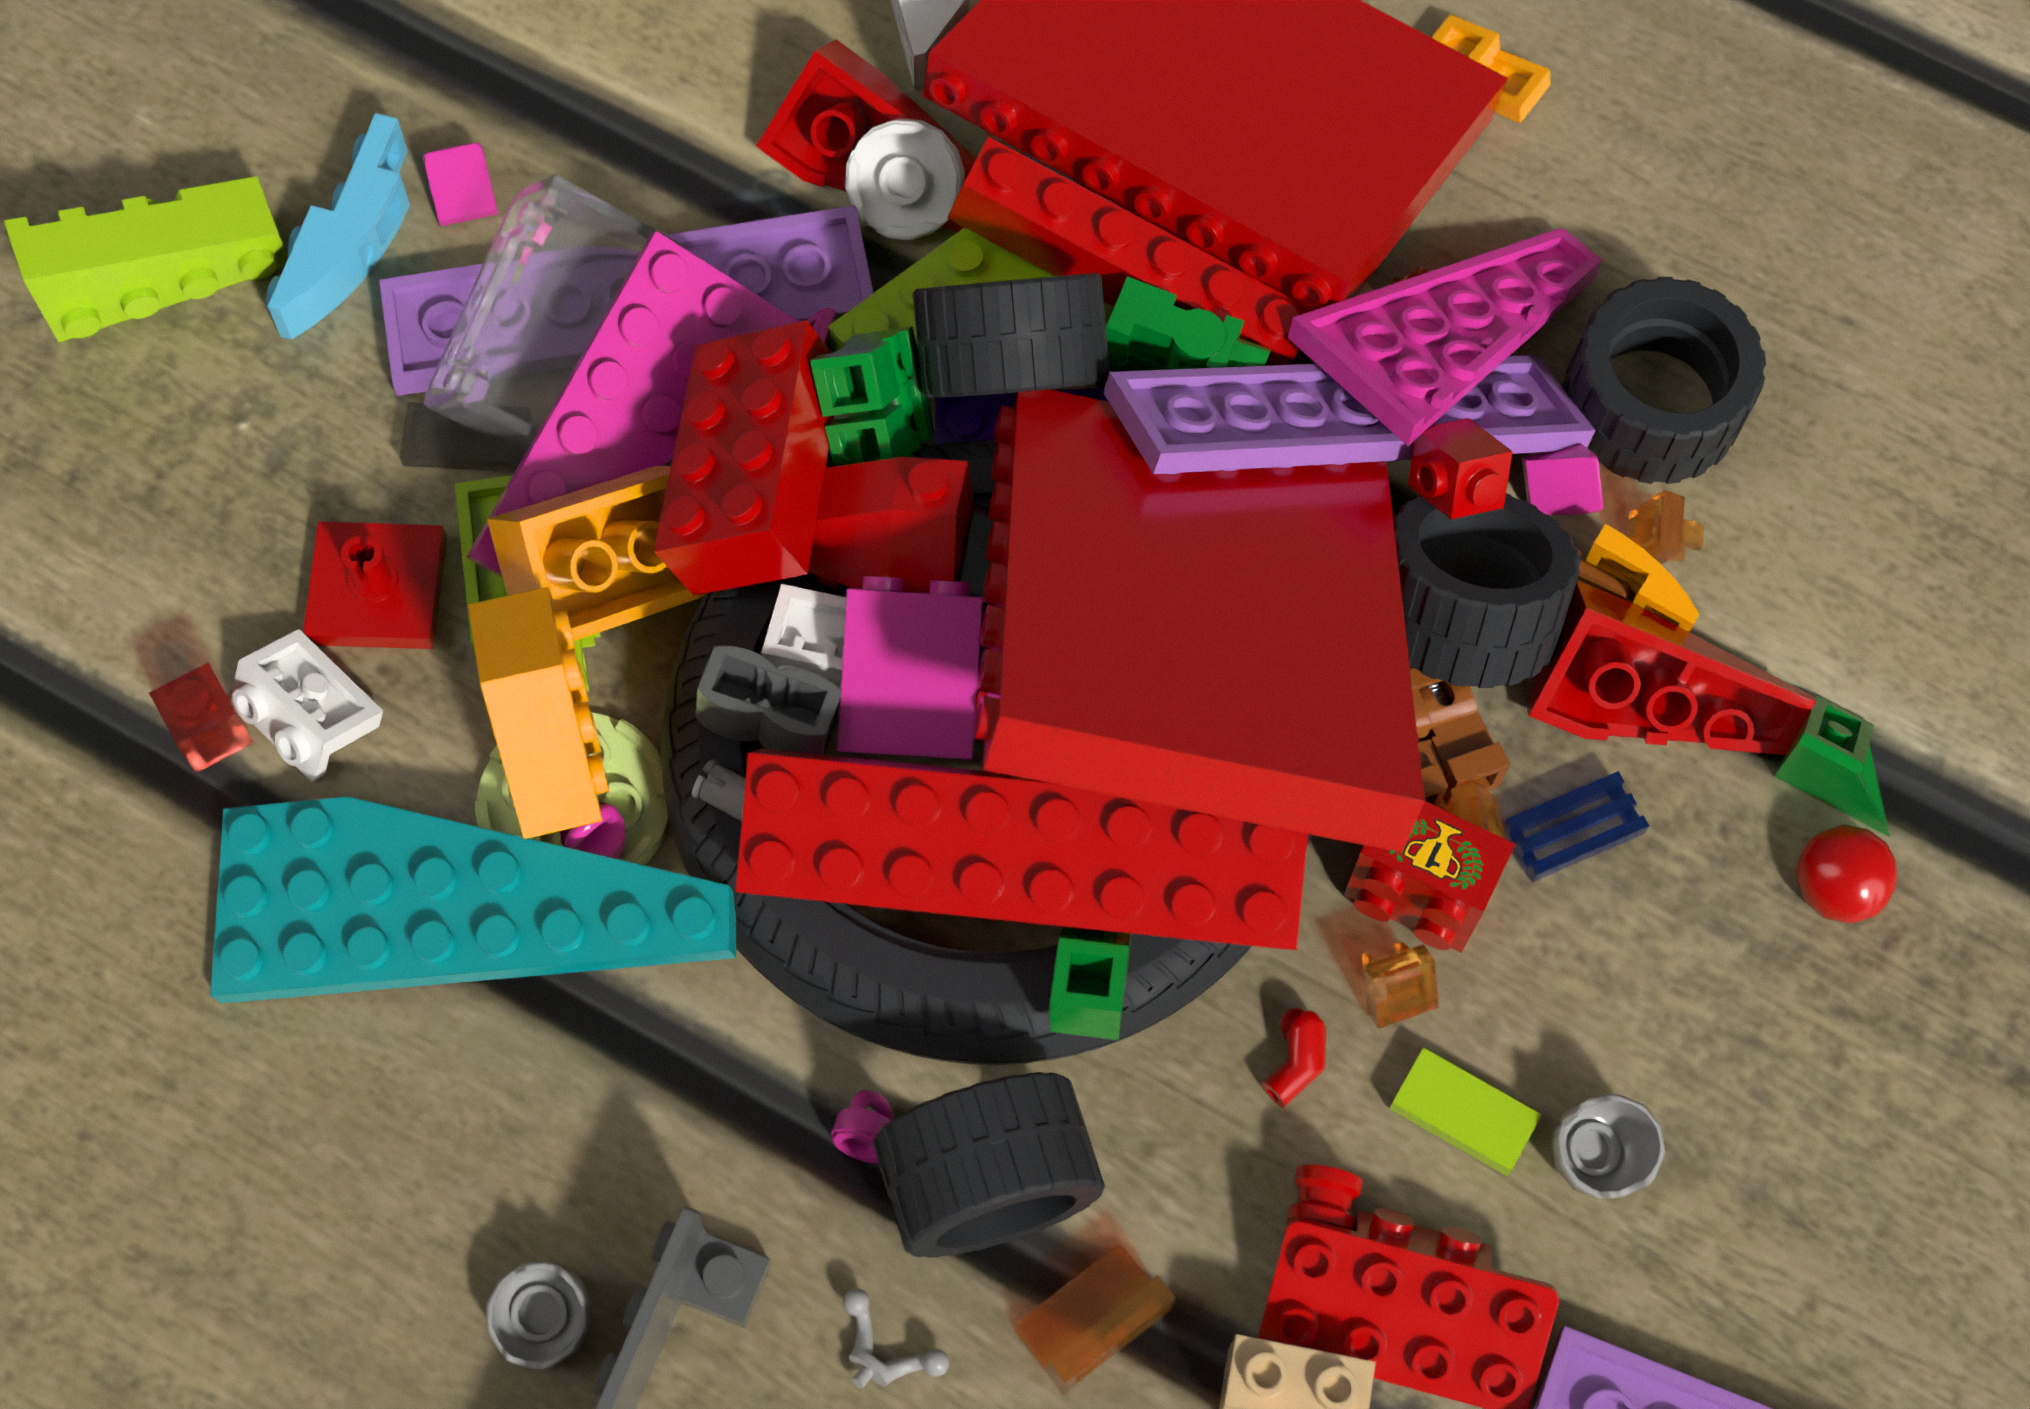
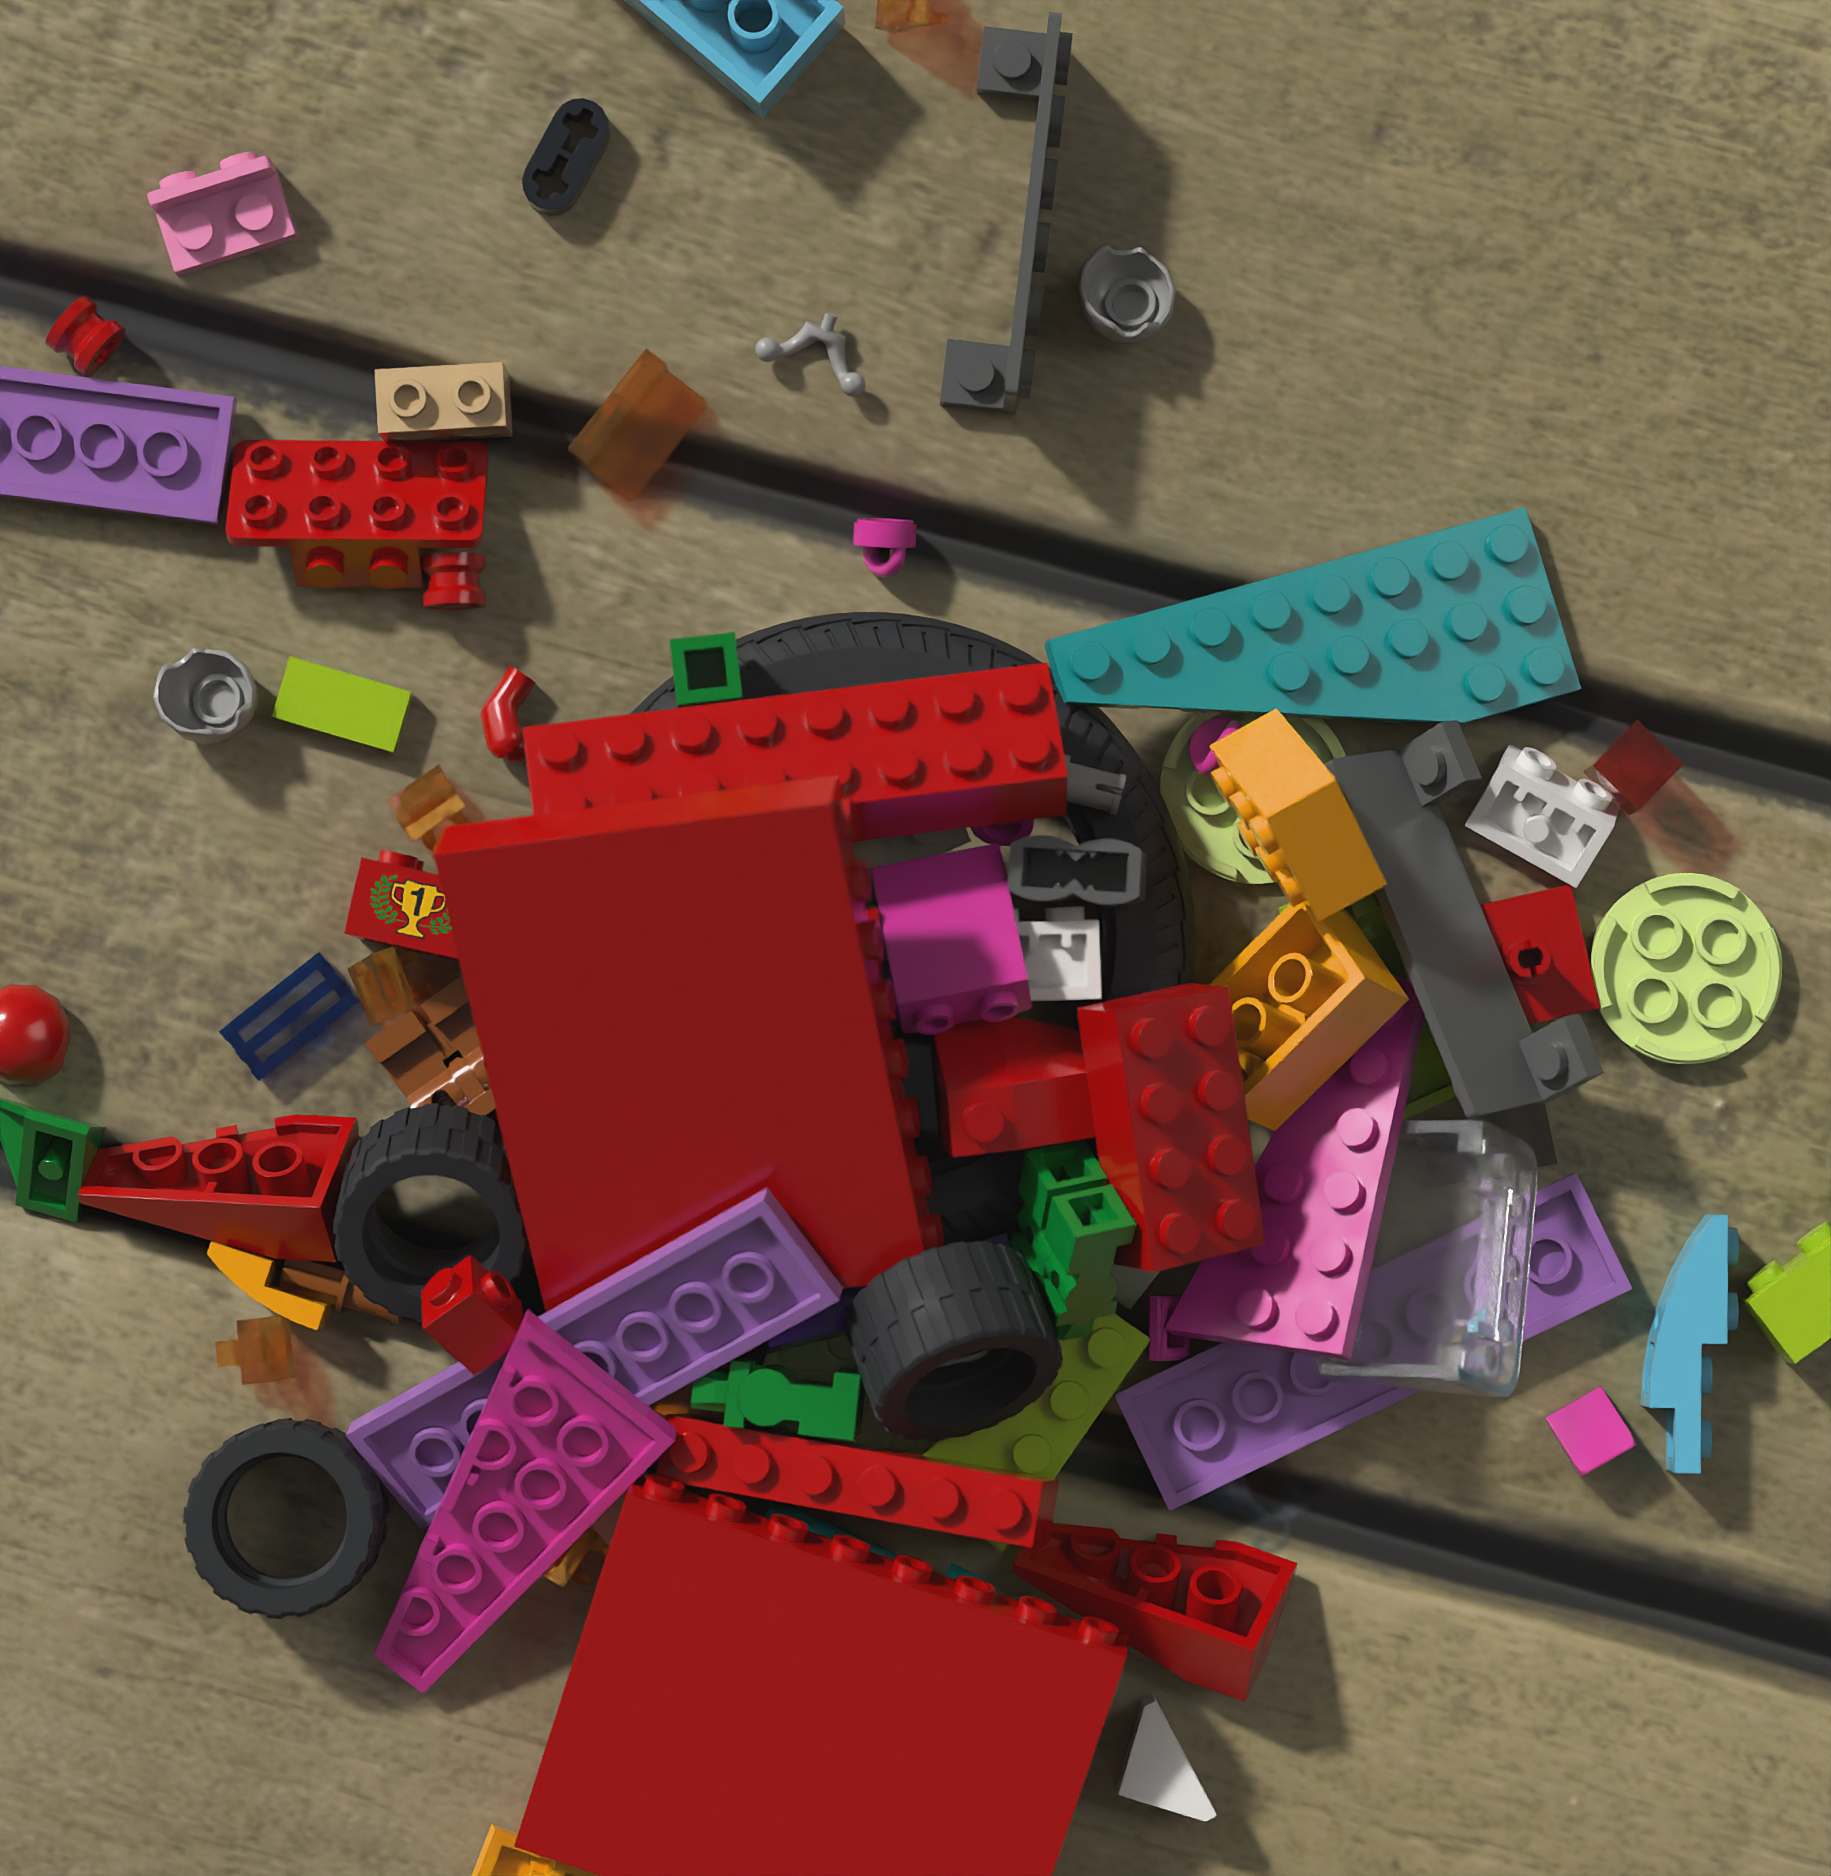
camera: 175 degrees right, 20 degrees up
(225, 542) = (1685, 968): none -> yellowish green tile
(435, 575) = (1444, 933): none -> dark grey bracket
(904, 178) = (1124, 1551): white tile -> none
(988, 1164) = (760, 510): black tyre -> none
(1564, 481) = (367, 1379): dark pink slope -> none

